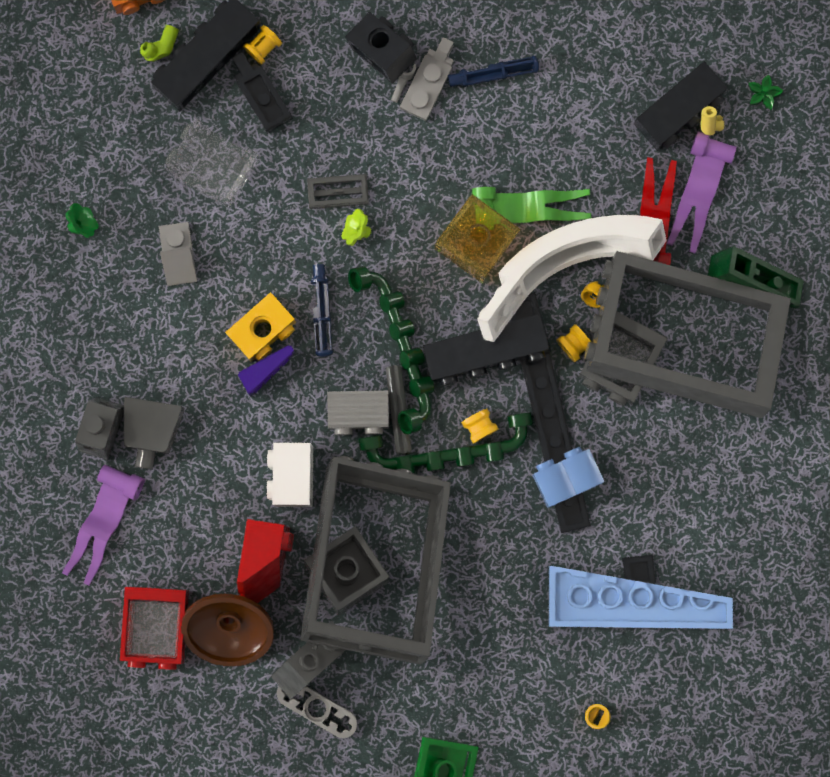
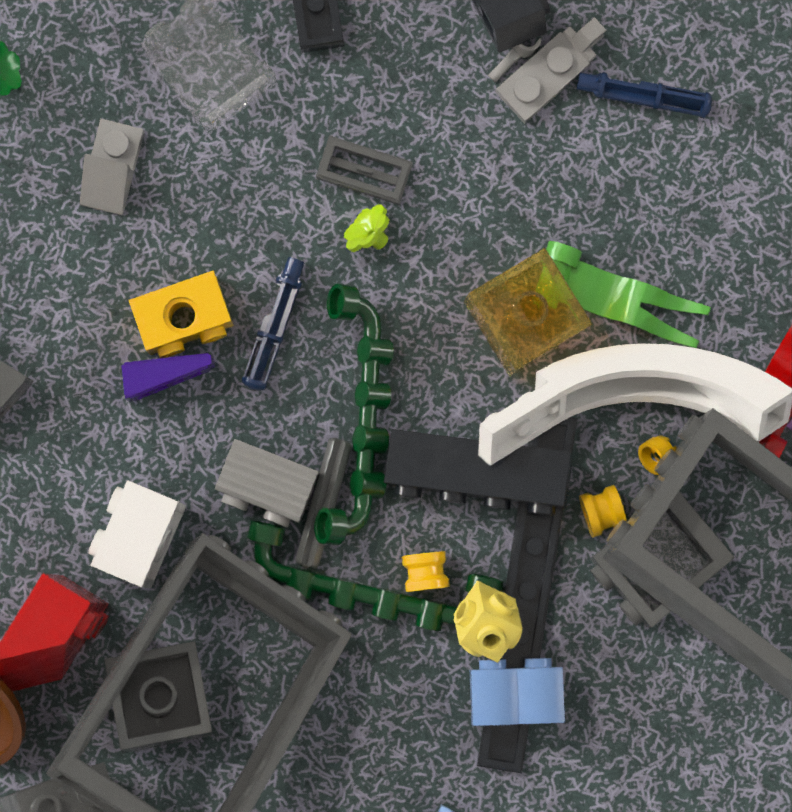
camera: 20 degrees right, 0 degrees up
(531, 440) = (487, 622): none -> light yellow brick

